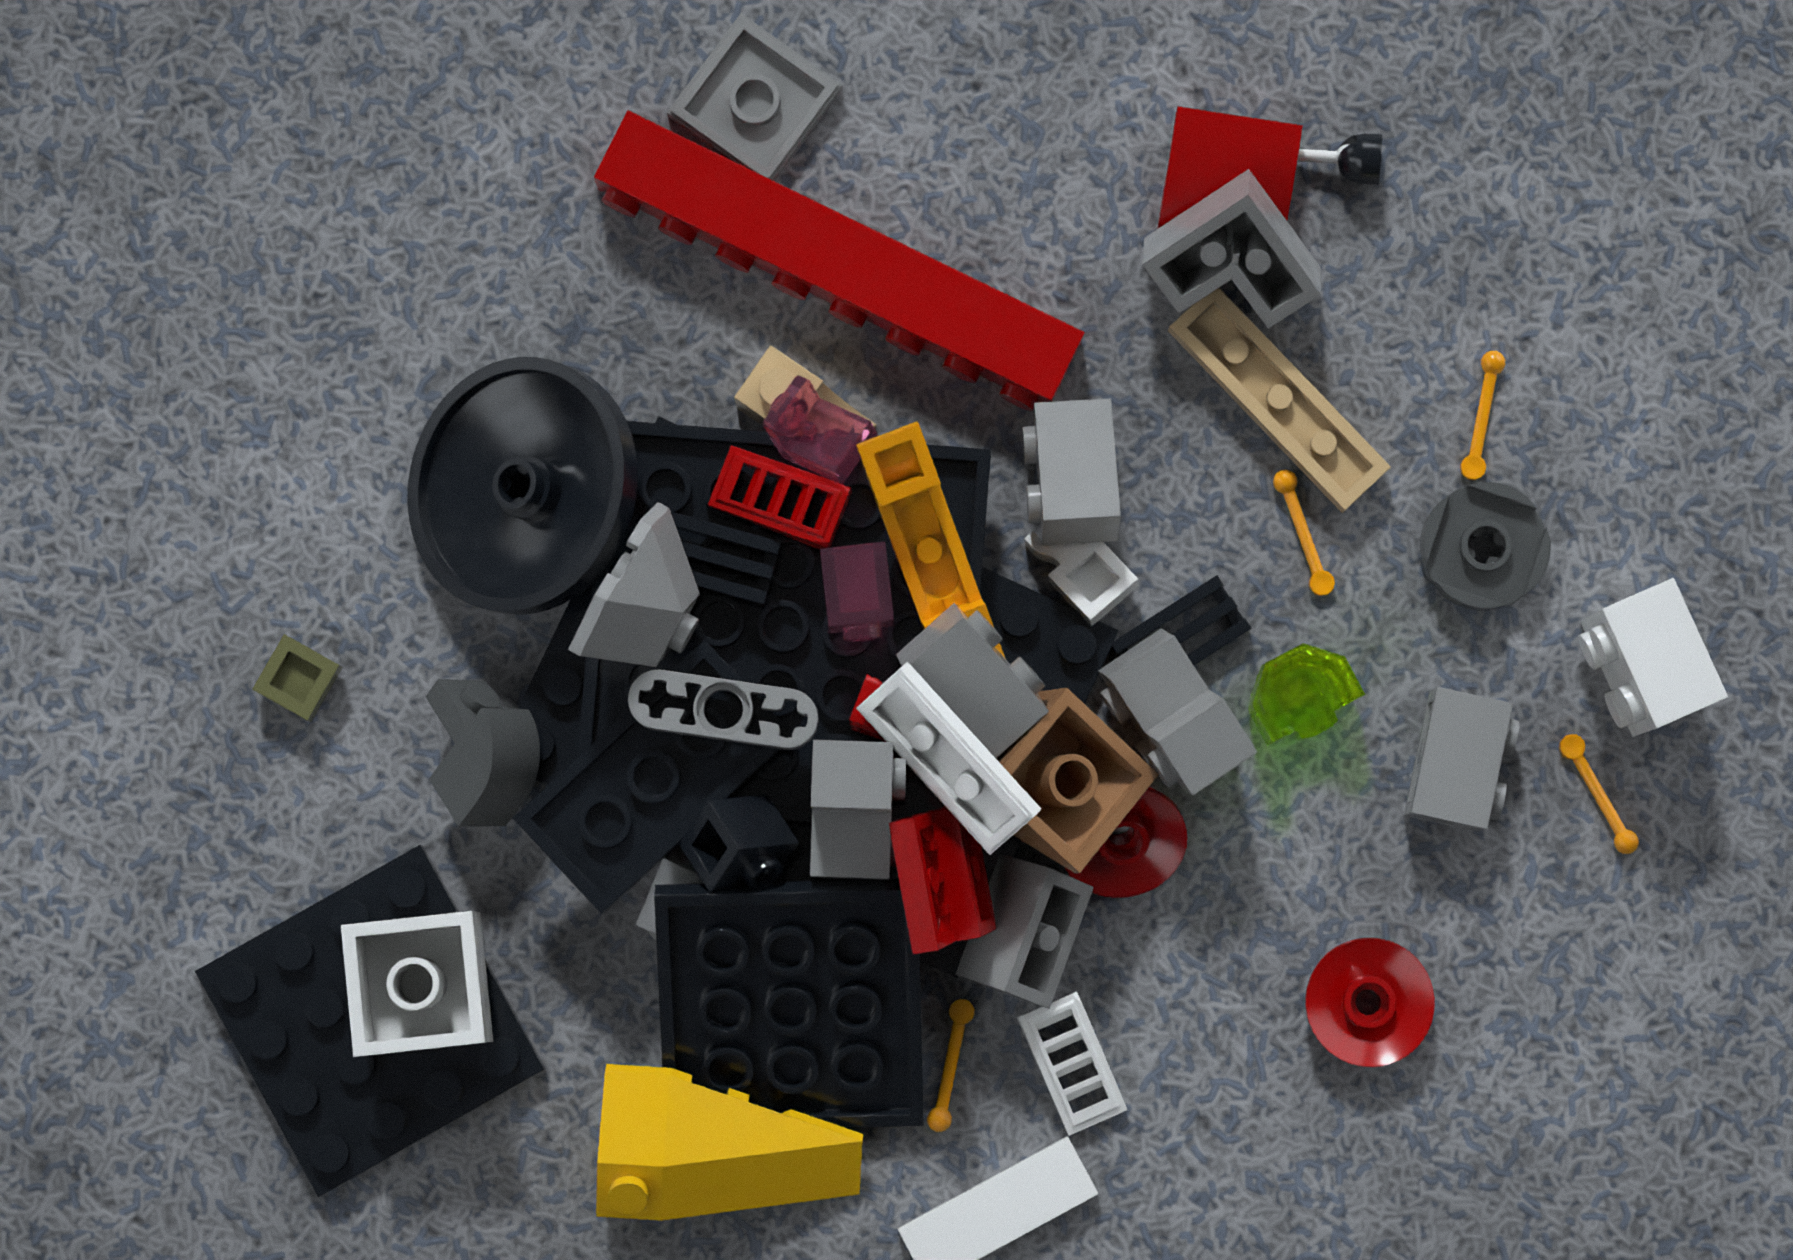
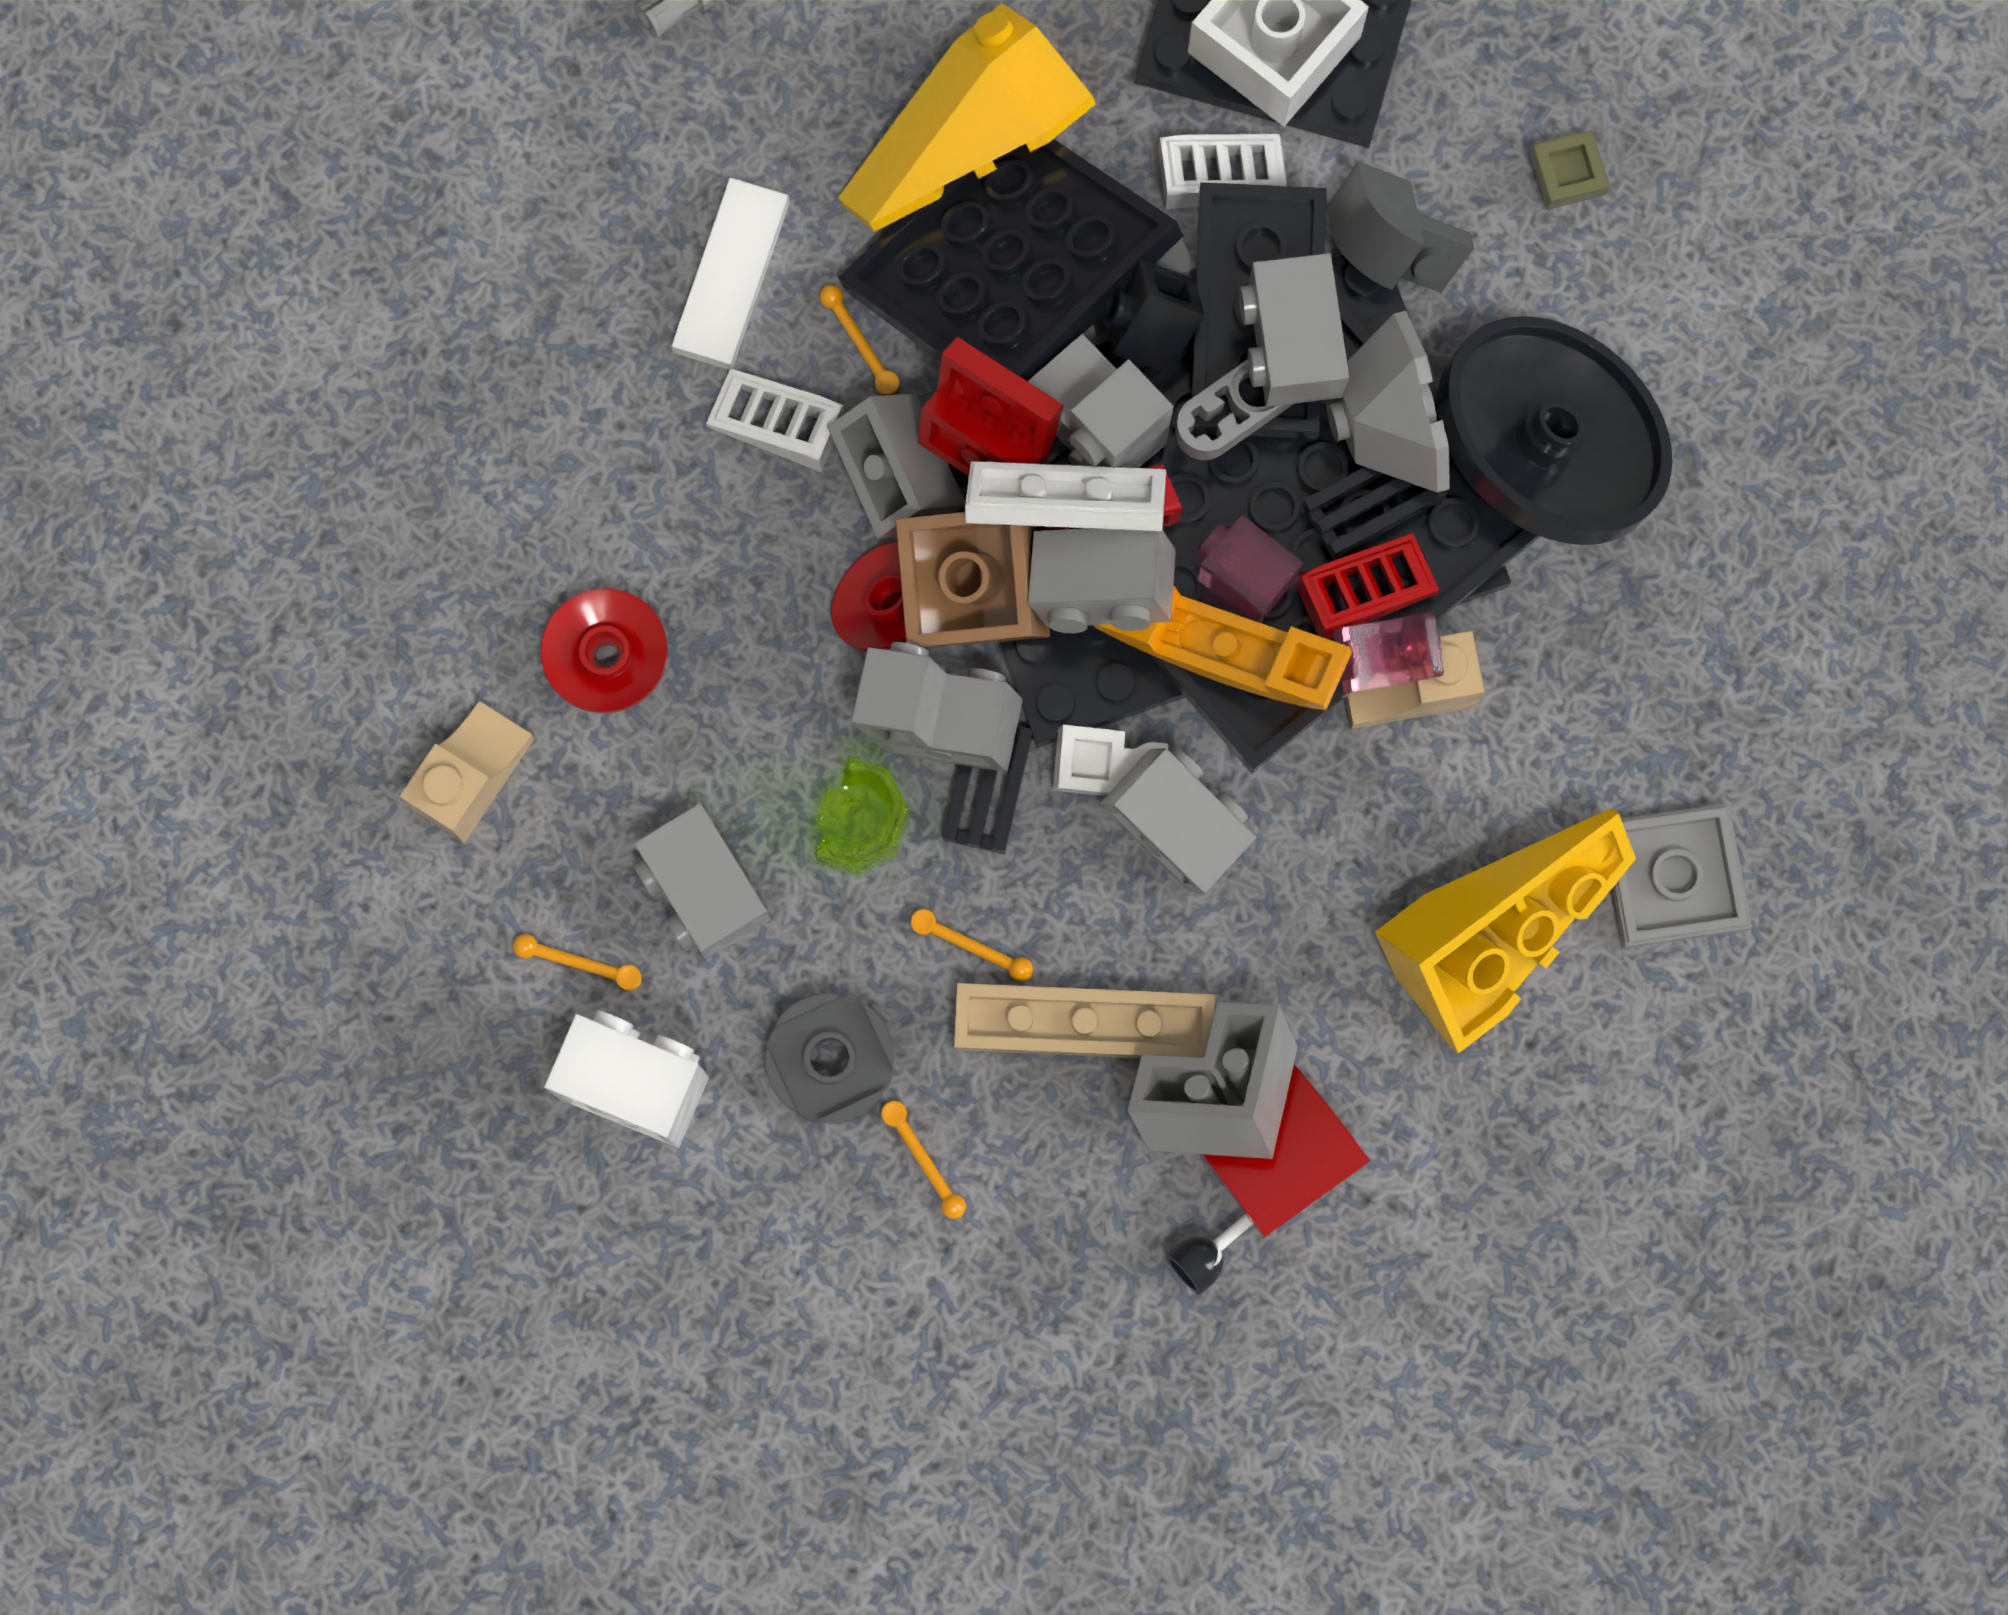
camera: 135 degrees right, 5 degrees down
(591, 966) = (1178, 148): none -> white slope
(662, 715) = (1296, 330): none -> light grey brick
(838, 261) = (1496, 811): red brick -> none
(942, 188) = (1484, 933): none -> yellow wedge
(1553, 1008) = (467, 771): none -> tan arch

